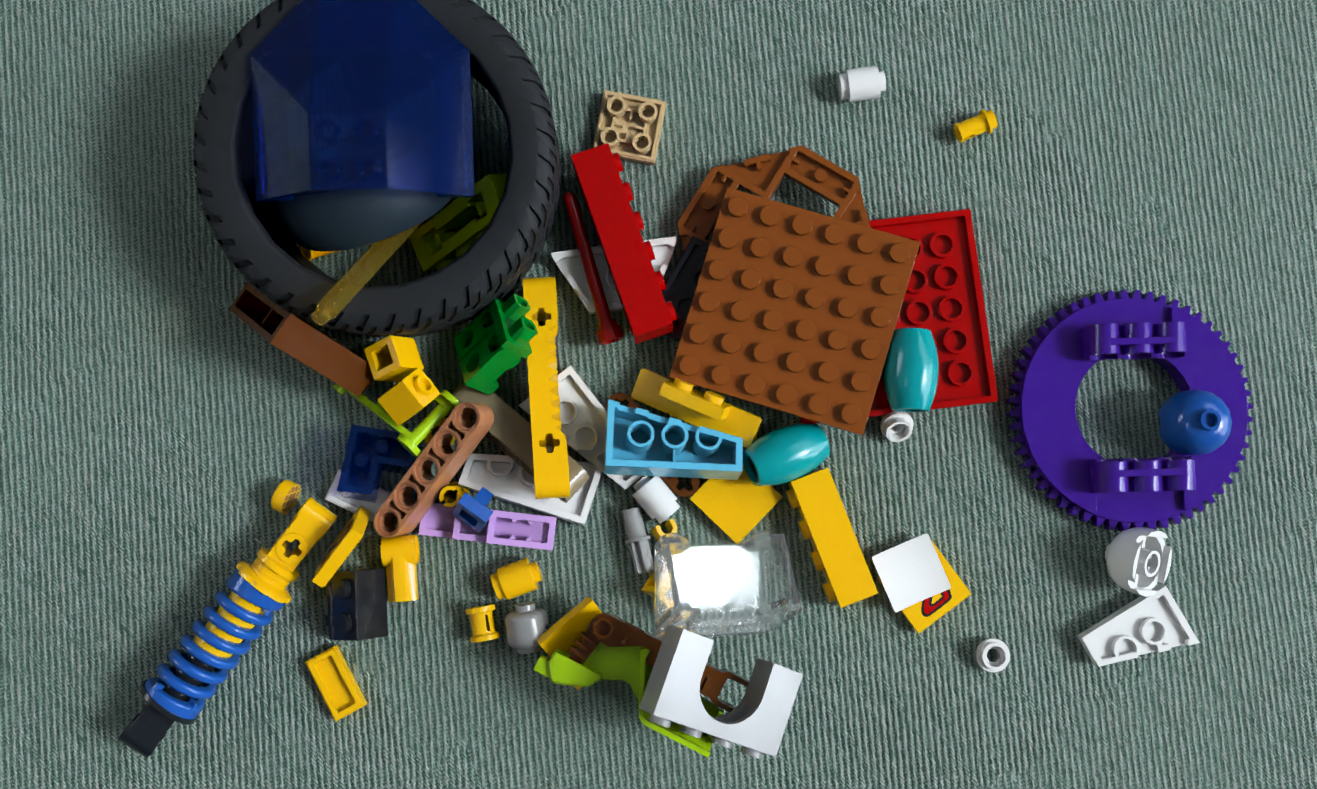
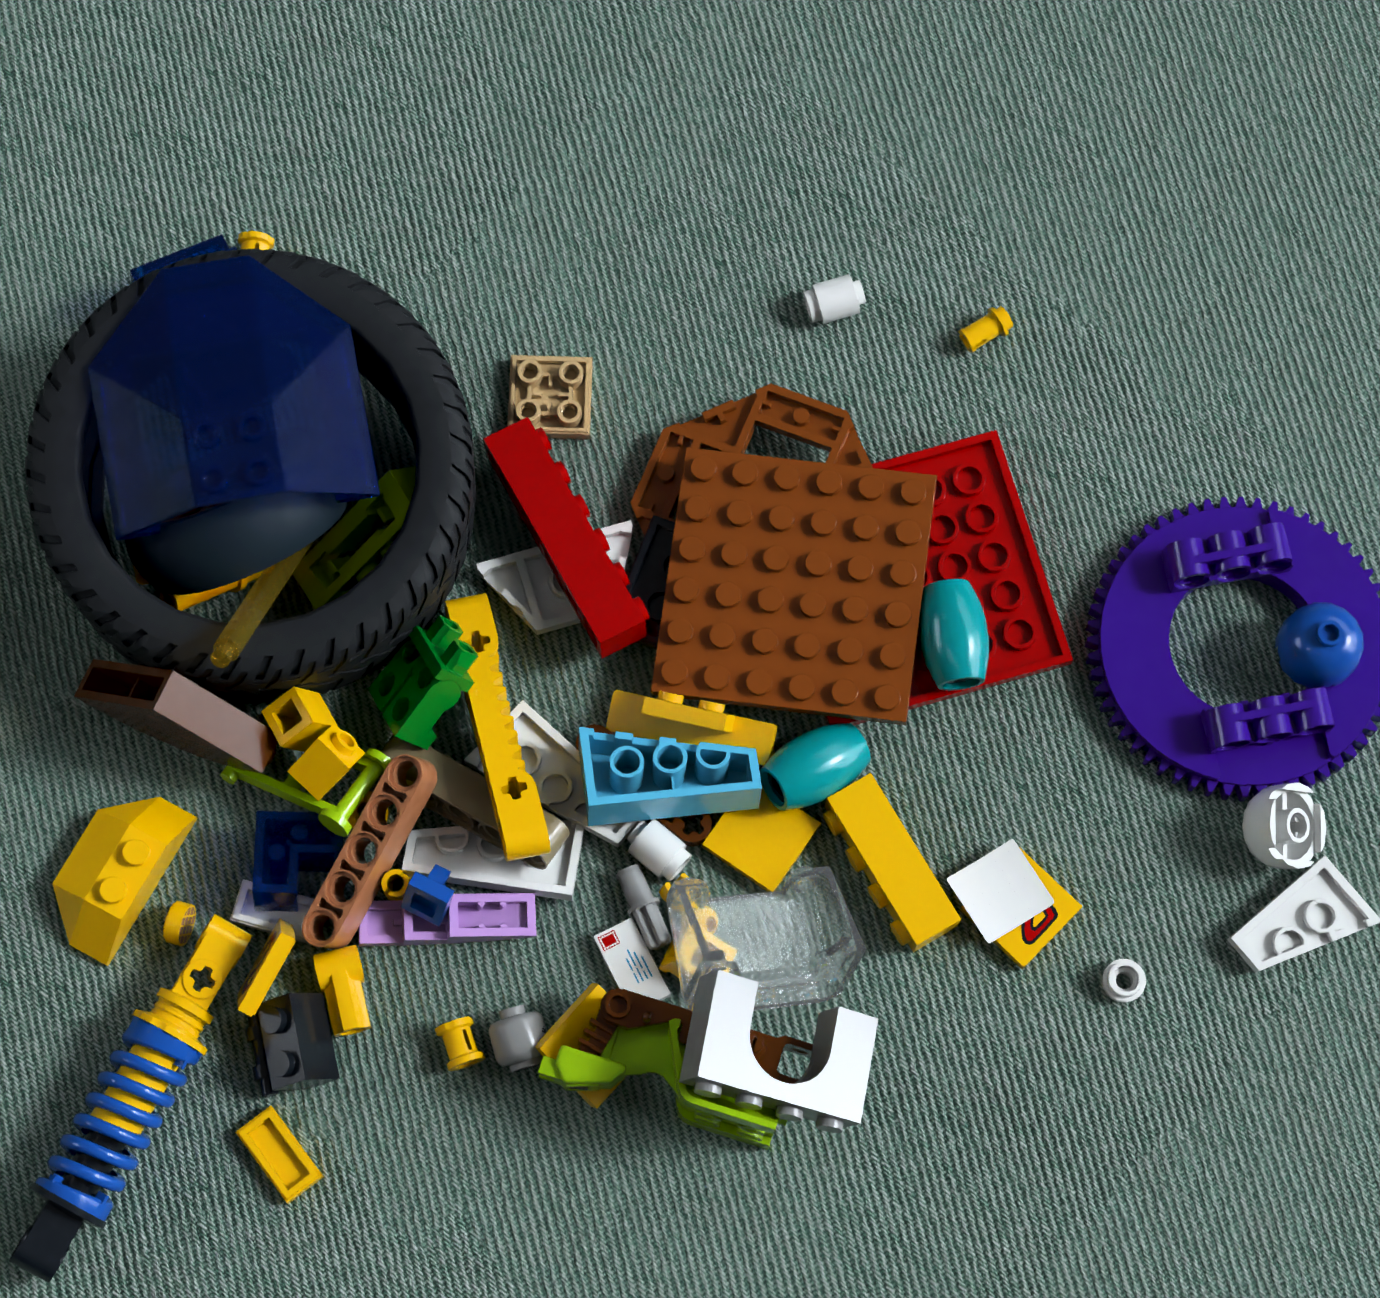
camera: 10 degrees left, 10 degrees down
(245, 448) = (117, 871): none -> yellow wedge
(516, 579) = (495, 980): yellow brick -> none
(608, 330) = (564, 647): red piece -> none
(621, 583) = (631, 960): none -> white tile
(897, 426) = (954, 720): white plate -> none

